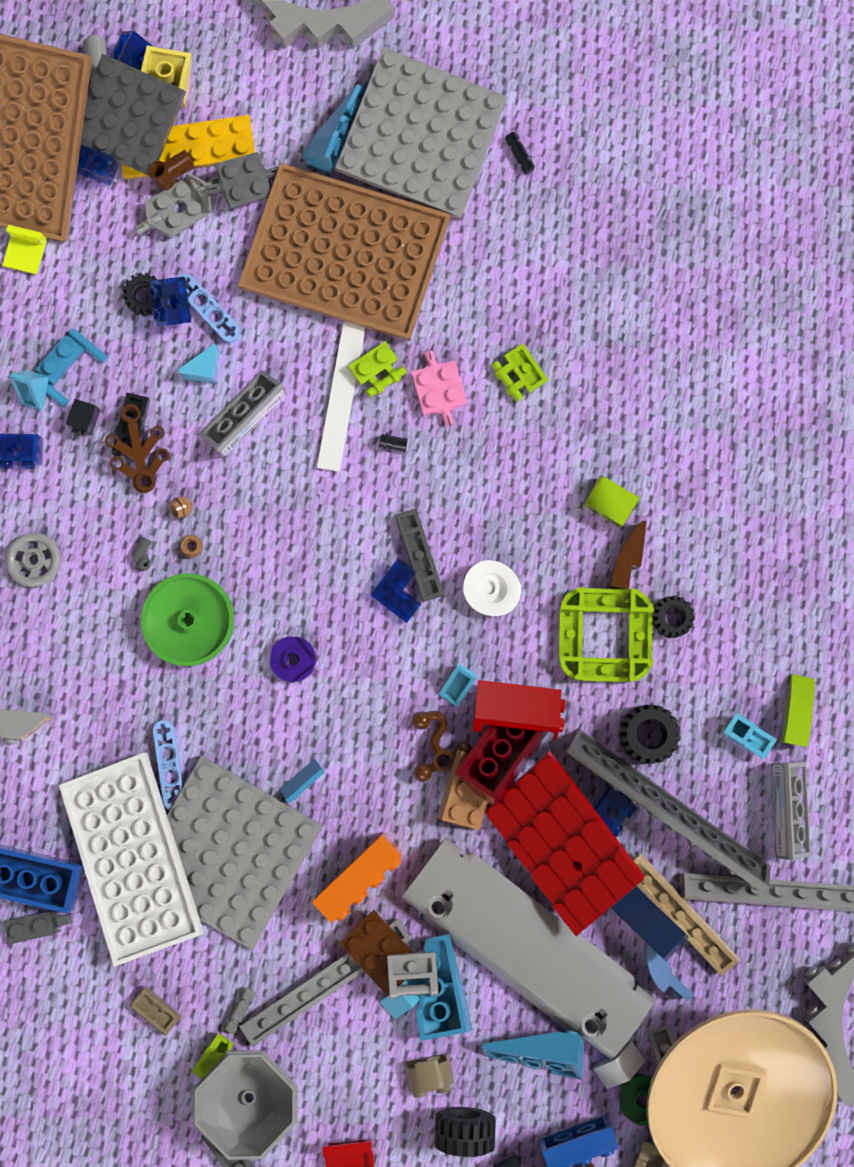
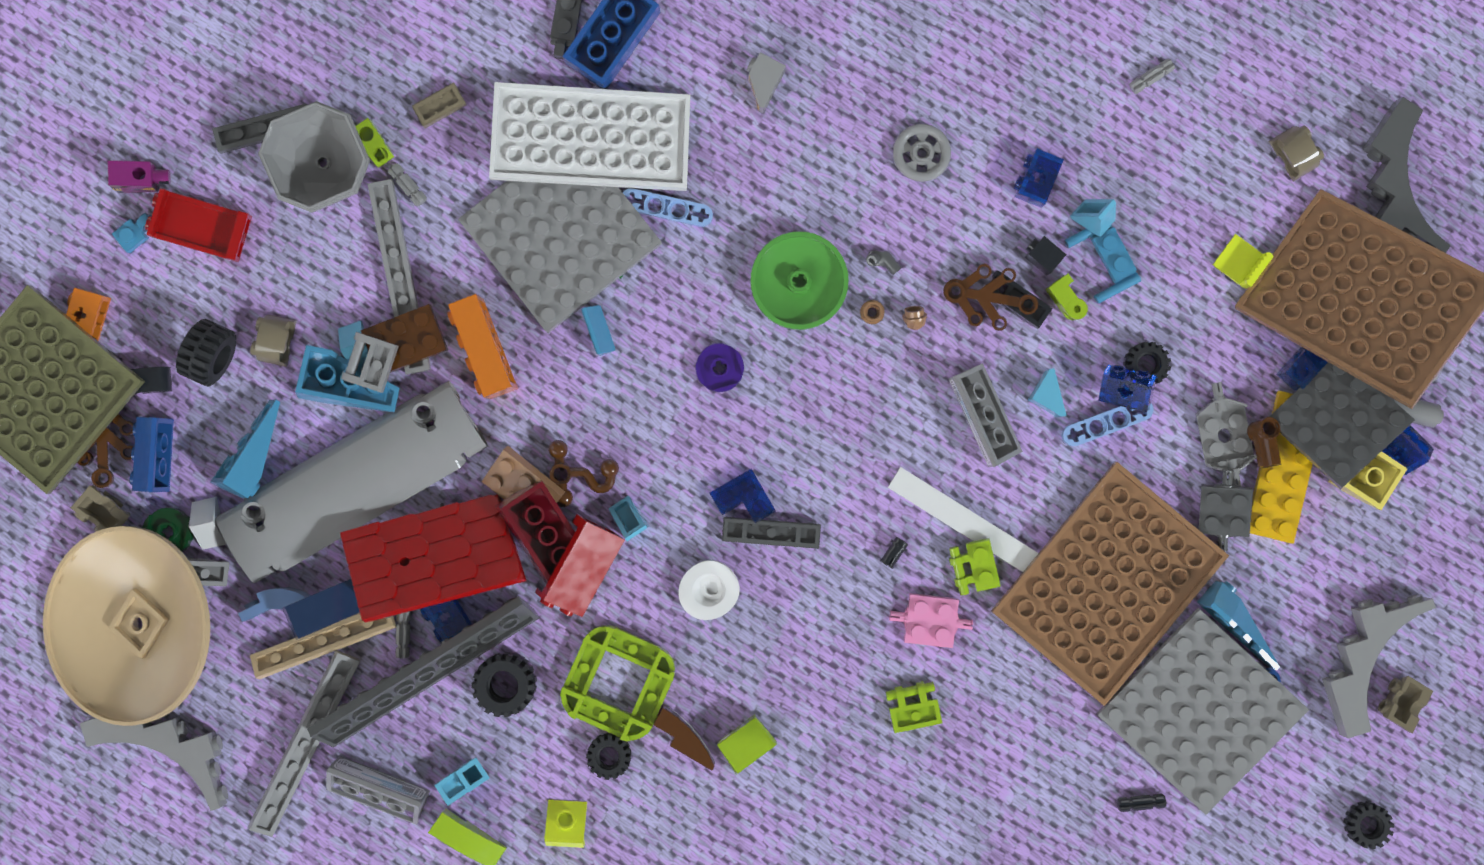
camera: 105 degrees right, 5 degrees up
(114, 384) = (1066, 299): none -> lime leg
(645, 843) = (403, 635): none -> light grey axle
(747, 630) = (565, 823): none -> neon yellow piece

